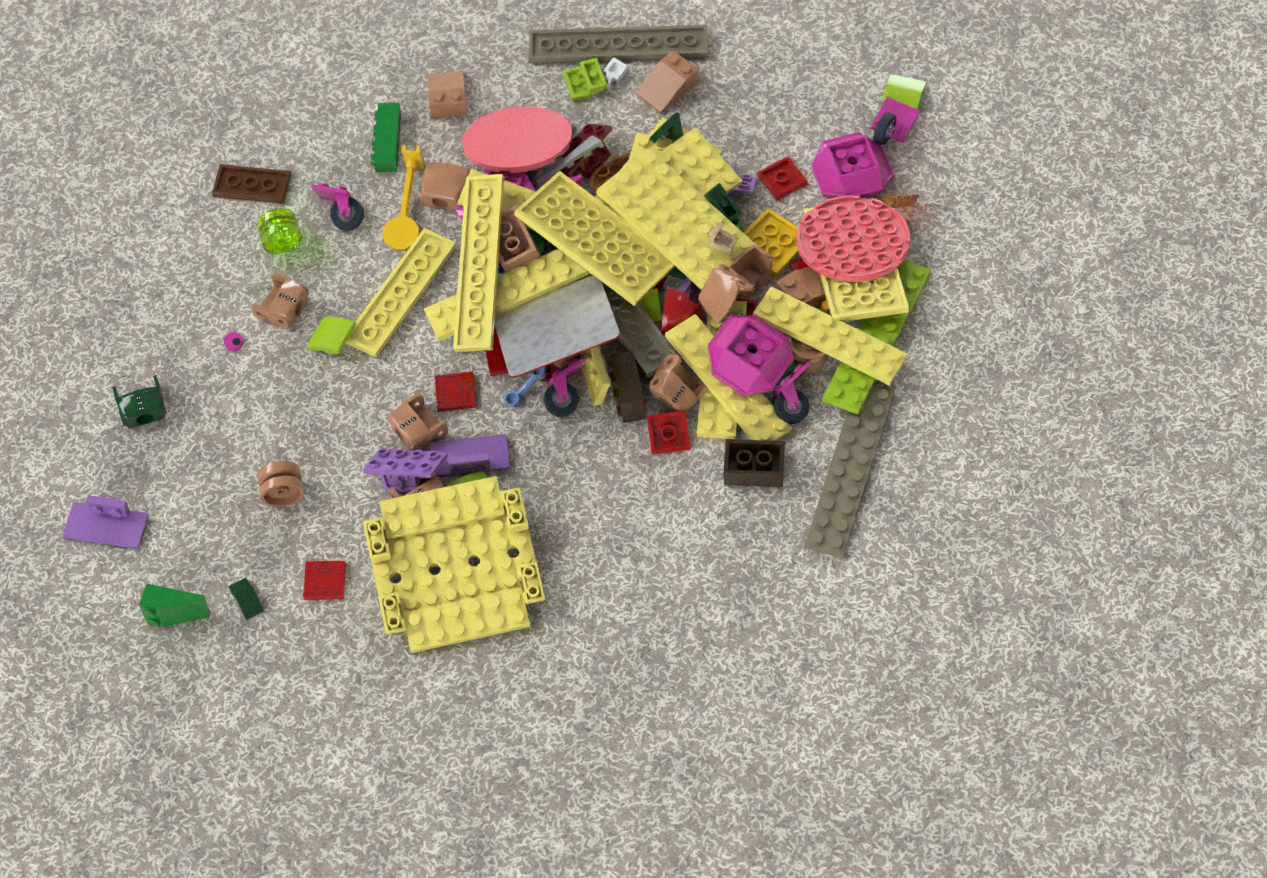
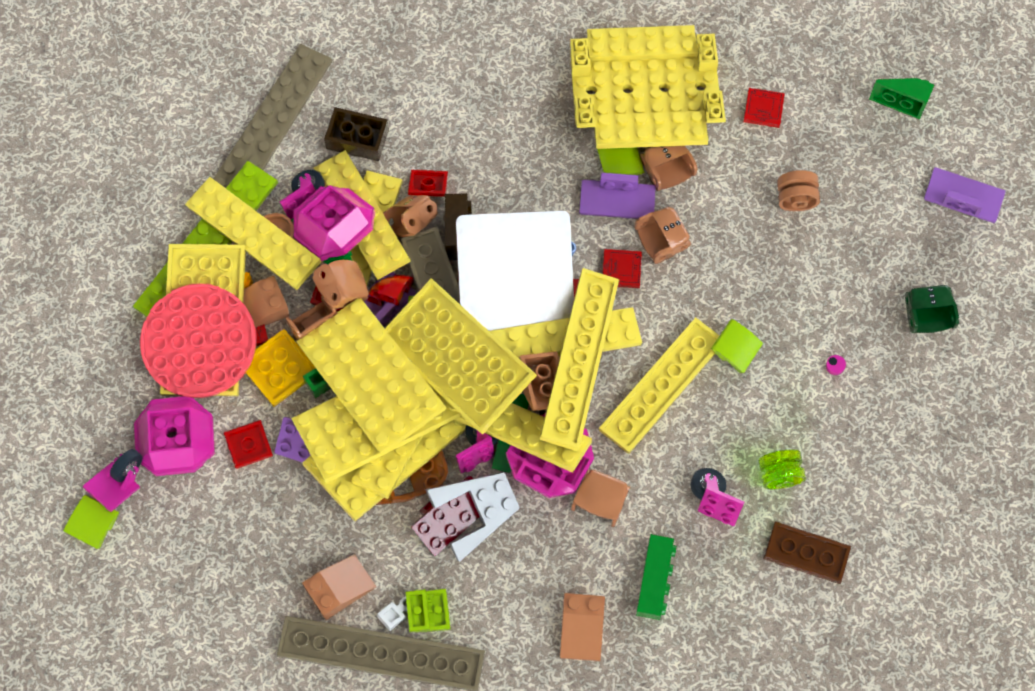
camera: 175 degrees left, 10 degrees up
(246, 598) = (836, 104): dark green slope -> none
(283, 302) = (785, 393): nougat piece -> none
(401, 230) = (653, 458): yellow piece -> none
(403, 467) = (679, 190): medium lavender bracket -> none
(517, 139) = (515, 531): coral tile -> none
(670, 129) = (353, 487): dark green slope -> none
(721, 239) = (330, 334): tan bracket -> none
(722, 202) = (318, 390): dark green slope -> none
(900, 199) = (137, 384): clear orange slope -> none

